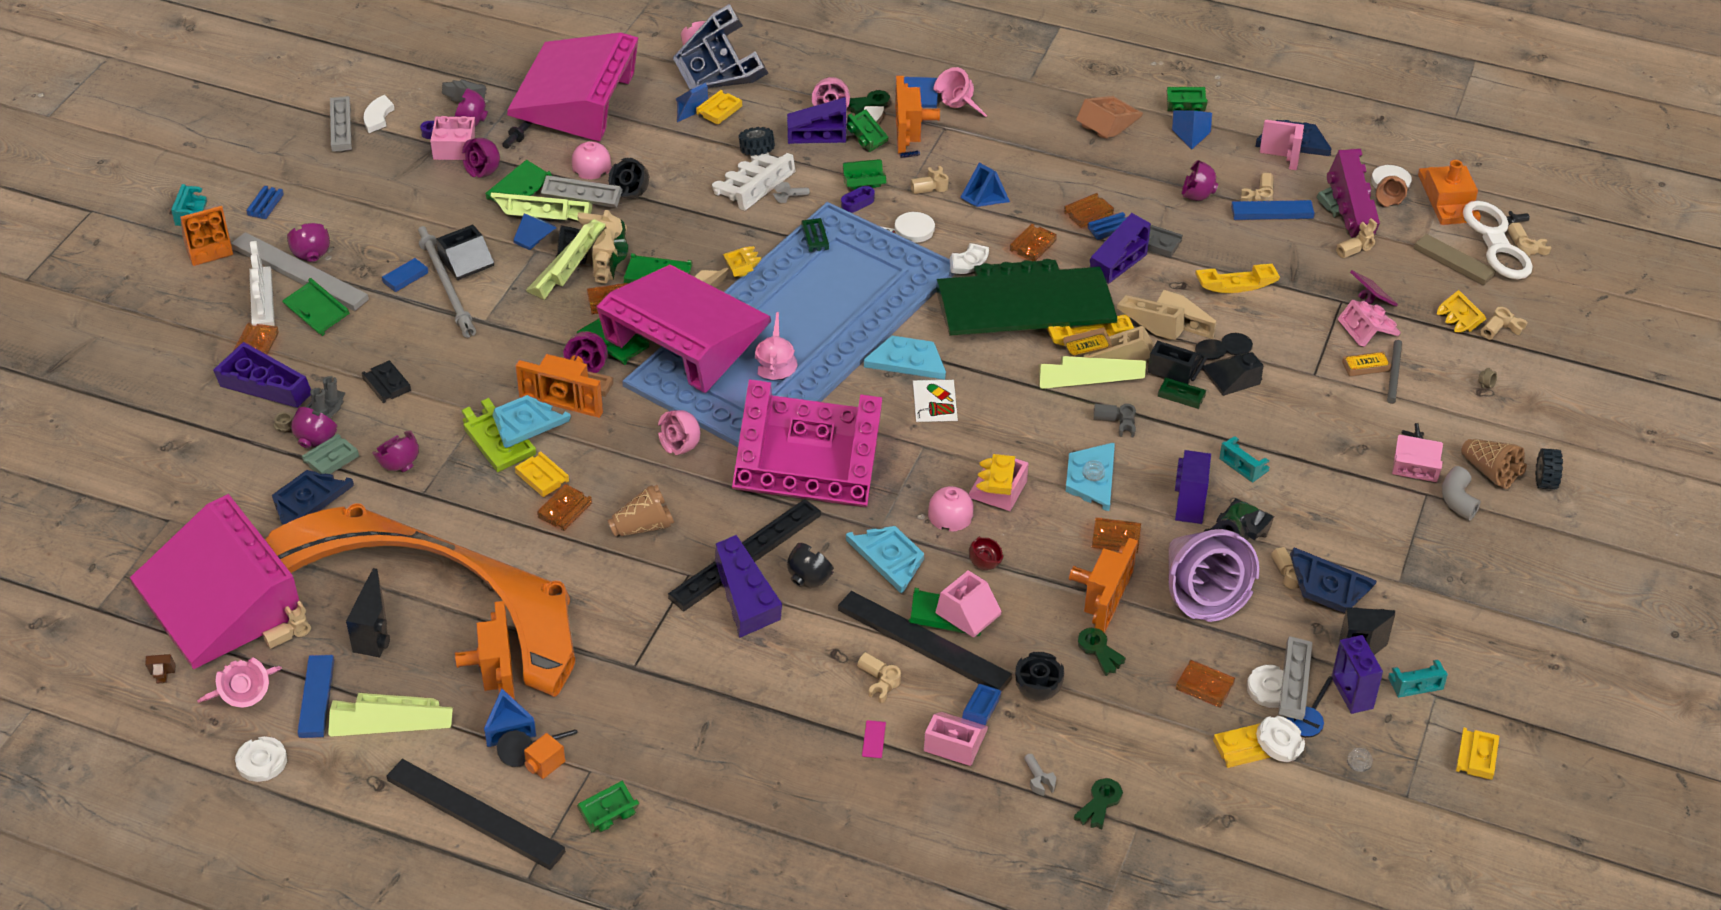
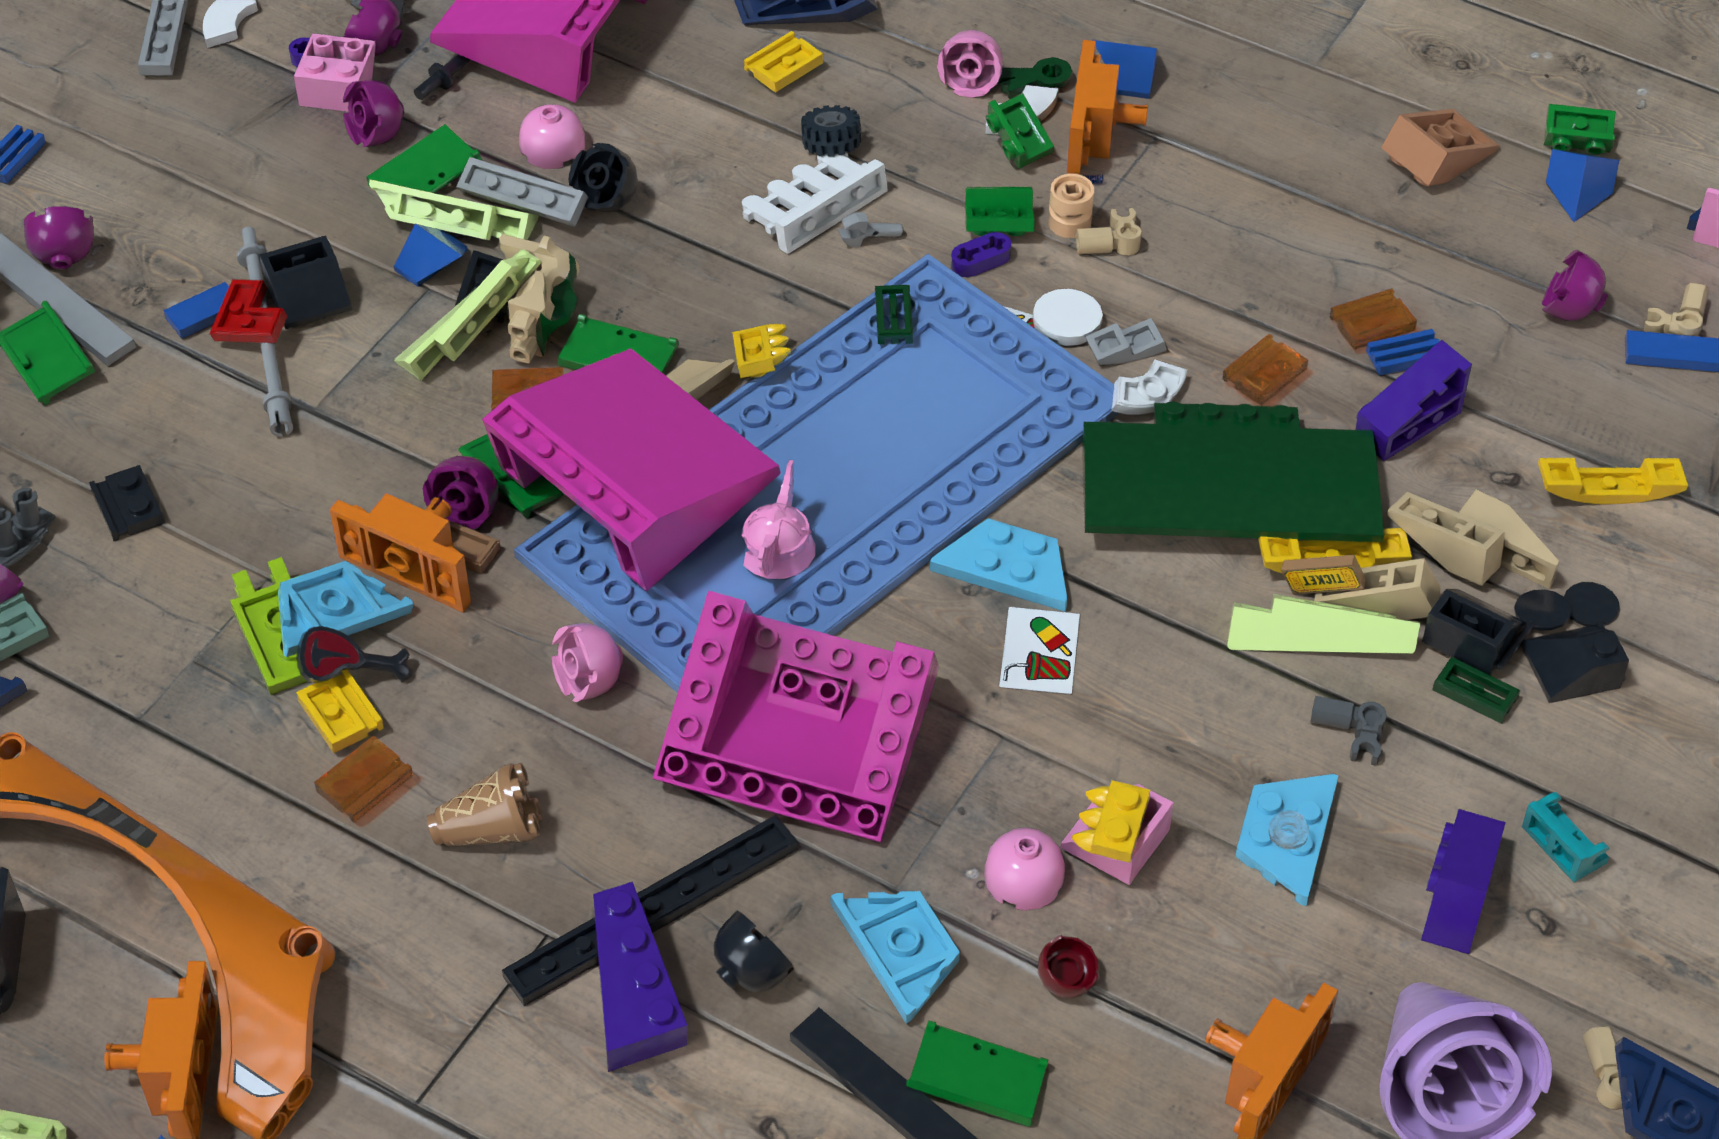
camera: 10 degrees right, 5 degrees up
(398, 452) = (108, 642): magenta cylinder -> none
(432, 276) = (243, 318): none -> red tile
(530, 442) = (327, 651): none -> black piece
(690, 101) = (737, 46): blue slope -> none
(818, 123) = (940, 110): dark purple wedge -> none
(904, 166) = (1070, 204): none -> light nougat wheel
(952, 238) = (1127, 345): none -> light grey slope
(956, 88) = (1184, 71): bright pink helmet -> none
(968, 604) = (1016, 1071): bright pink slope -> none
(984, 188) = (1199, 258): blue slope -> none
(1114, 533) = (1308, 958): clear orange plate -> none
(1163, 241) = (1492, 390): dark grey plate -> none
(1244, 520) = (1535, 970): black hips -> none

